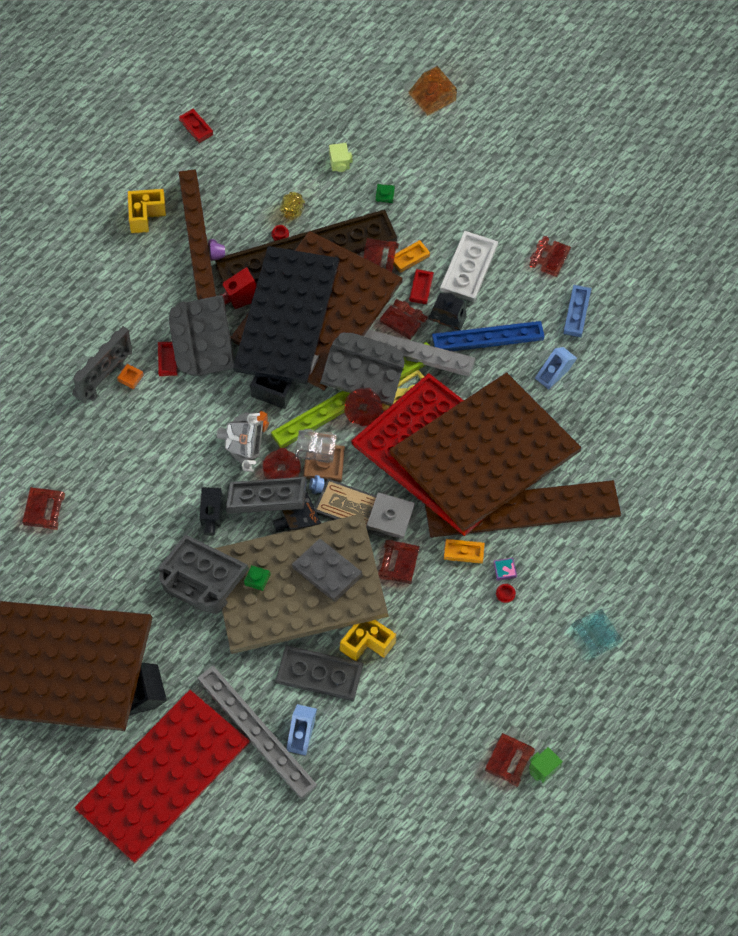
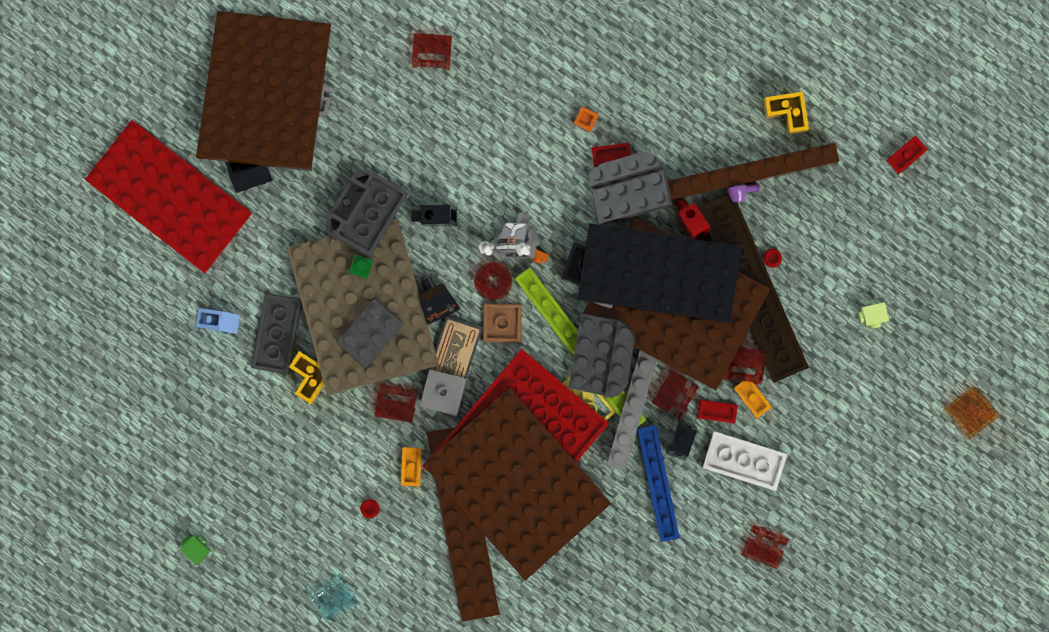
camera: 90 degrees right, 25 degrees up
(100, 366) = (578, 85): dark grey plate -> none
(257, 732) = (213, 279): light grey plate -> none
(266, 495) = (455, 268): dark grey tile -> none
(292, 205) = (807, 268): clear yellow head -> none
(316, 446) = (514, 313): clear brick -> none
(316, 484) = (474, 317): light blue plate -> none
(353, 402) = (560, 349): clear red plate -> none
(385, 193) = (833, 367): green plate -> none
(503, 756) = (202, 510): clear red plate -> none
(505, 569) = (395, 507): tile -> none
(555, 367) = (625, 554): light blue slope -> none
(577, 311) = (696, 576): medium blue plate -> none

